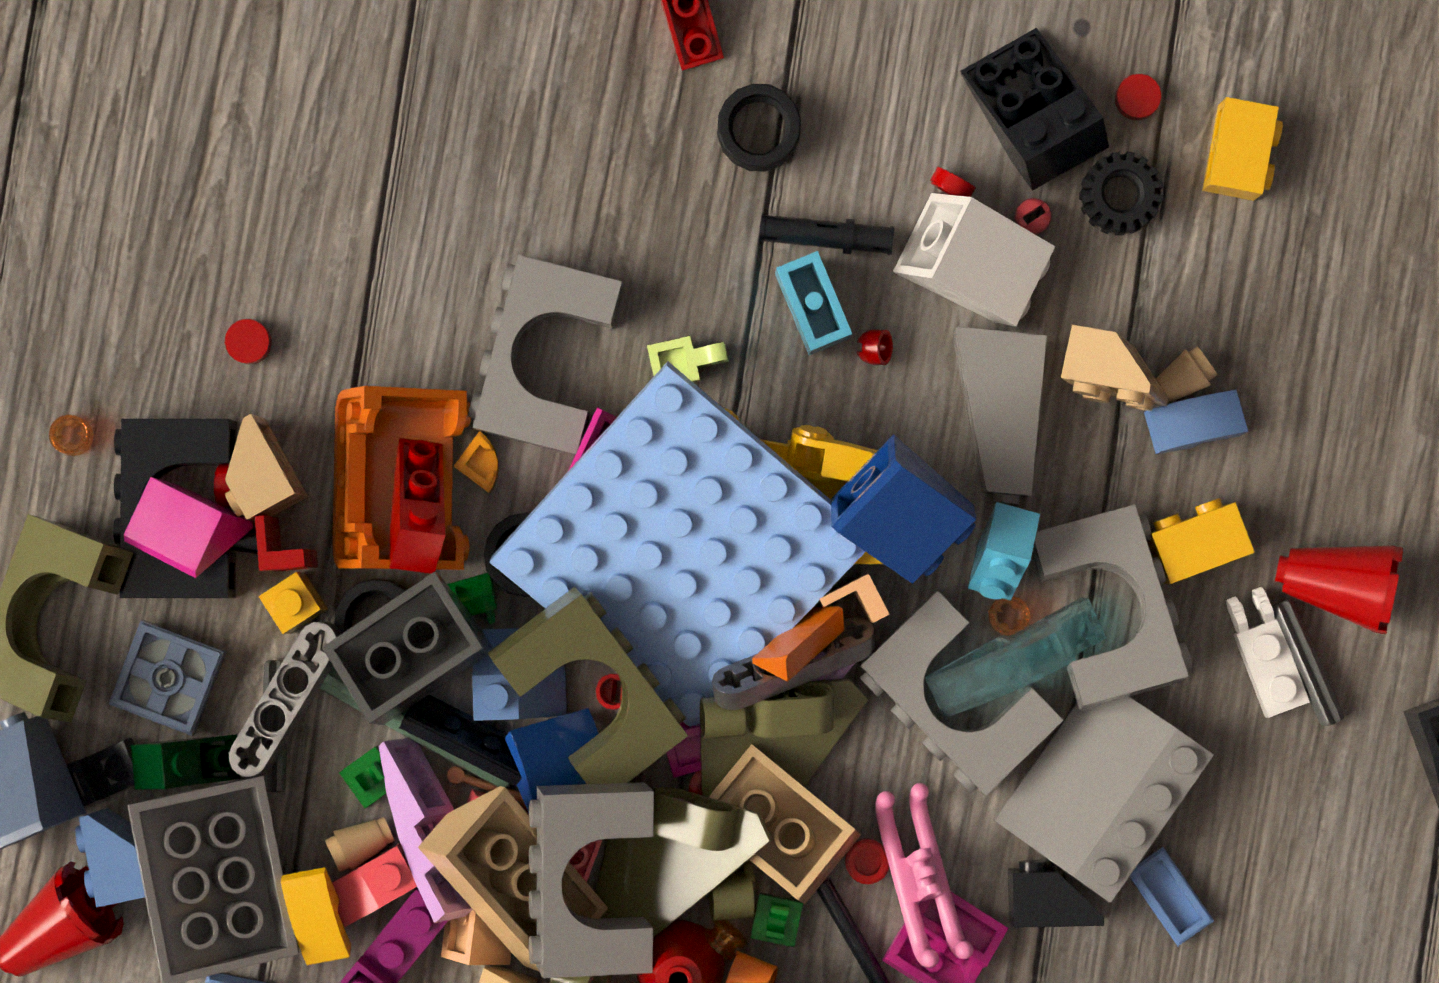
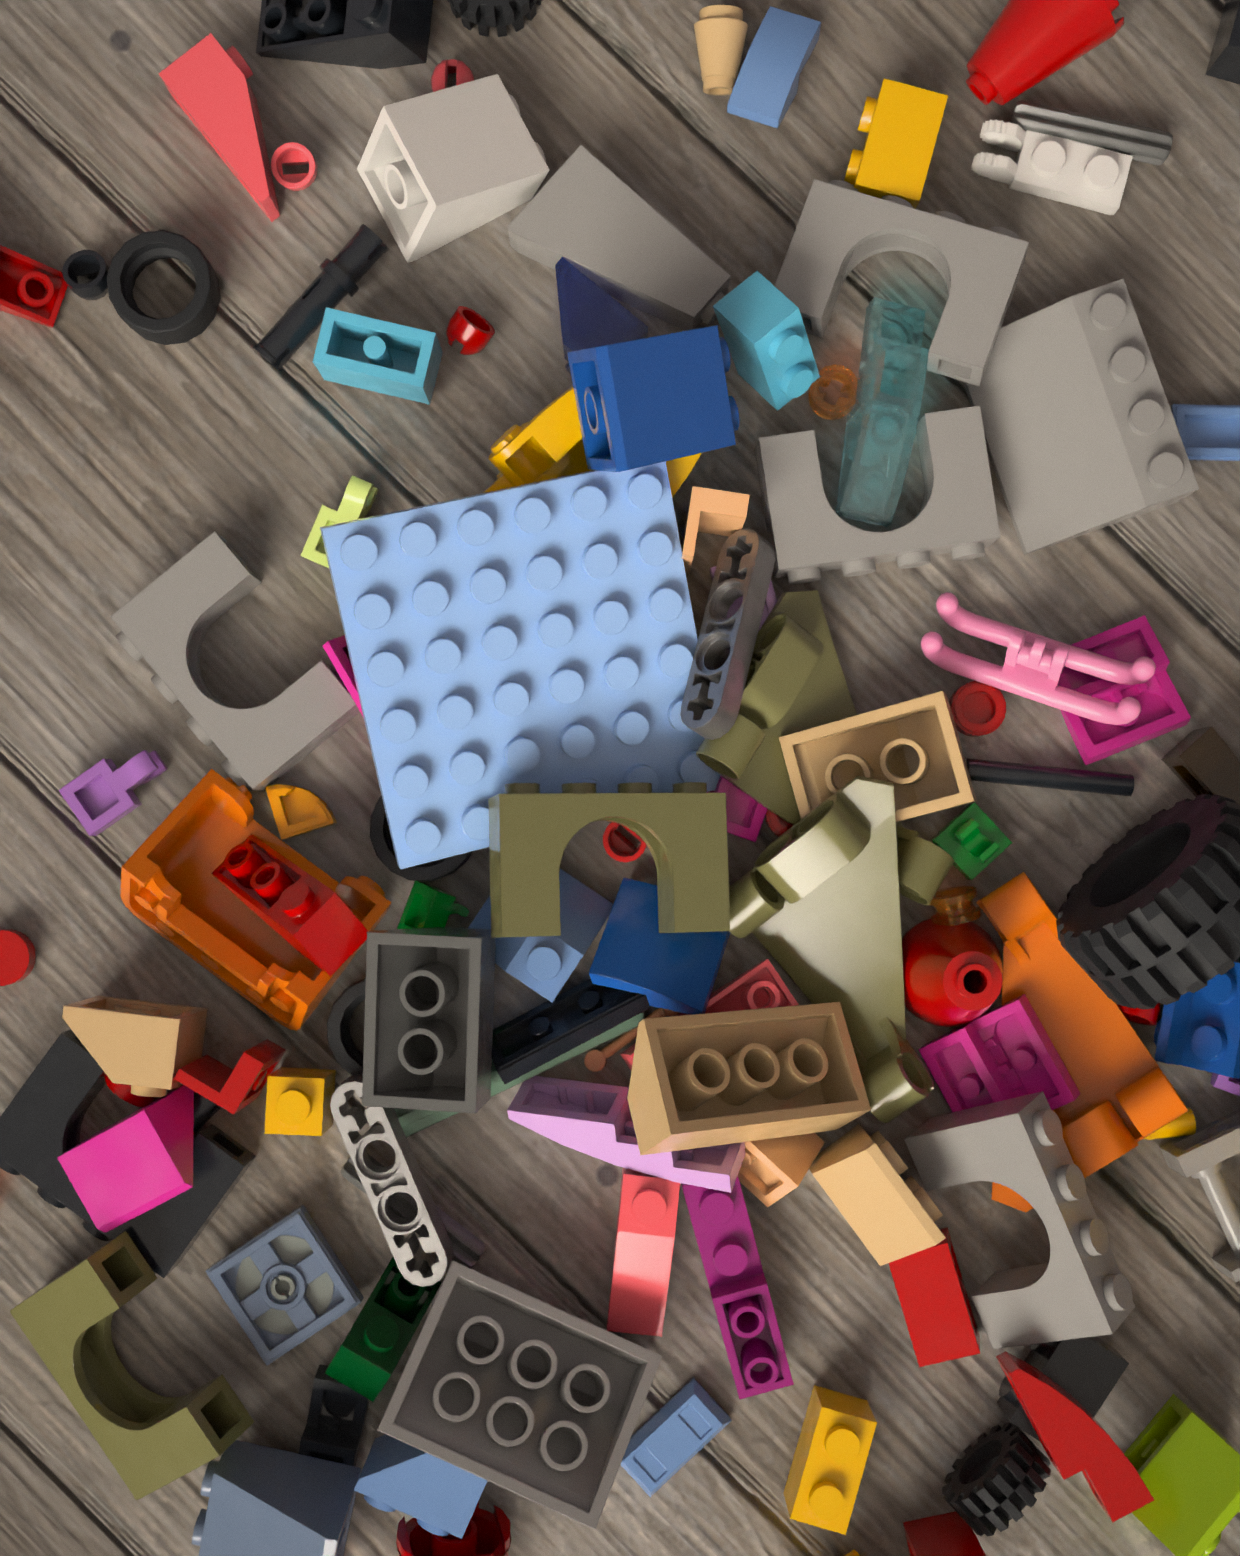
camera: 55 degrees left, 0 degrees up
(314, 916) = (633, 1311): yellow slope -> none
(358, 843) = (593, 1209): tan cone -> none
(366, 777) = (532, 1154): green tile -> none
(402, 330) = (106, 792): none -> medium lavender plate
(565, 822) = (726, 982): light grey arch -> none
(735, 66) = (86, 274): none -> black hinge
(801, 644) = (715, 615): orange slope -> none
(893, 161) = (291, 155): none -> coral hinge
(905, 81) = (222, 106): none -> coral slope
(936, 427) = (590, 314): none -> clear blue slope
(951, 183) = (354, 136): red tile -> none
(1045, 899) = (1144, 555): black slope -> none
(1107, 365) = (662, 99): tan slope -> none

